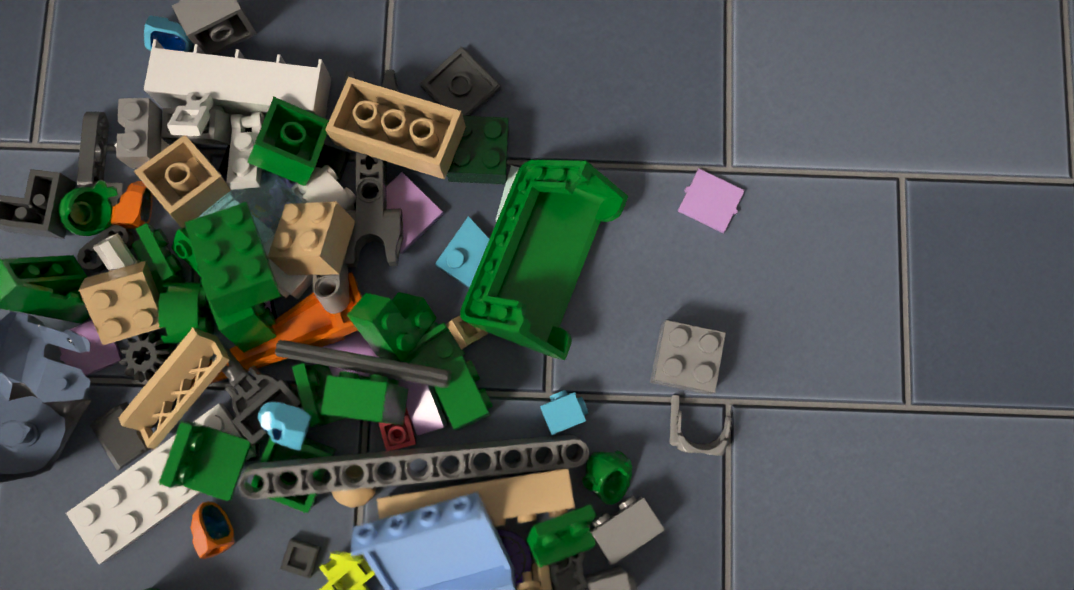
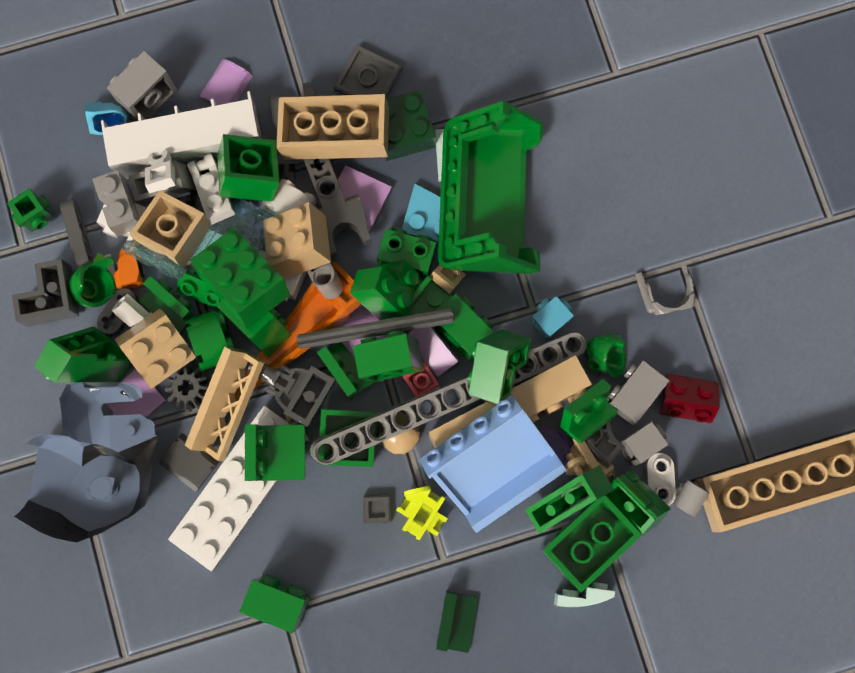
camera: 15 degrees left, 0 degrees up
(52, 109) = (30, 210): none -> green brick
(155, 207) = (153, 258): none -> clear light blue tile
(211, 530) = (296, 510): orange rock -> none
(284, 424) = (330, 397): medium azure rock -> none
(309, 43) = (226, 83): none -> lavender piece
(440, 292) = (415, 250): none -> green brick
(474, 449) = (495, 364): none -> brick
(683, 555) = (690, 398): none -> dark red bracket
(688, 357) = (638, 237): light grey brick -> none
(711, 200) = (610, 104): lavender piece -> none

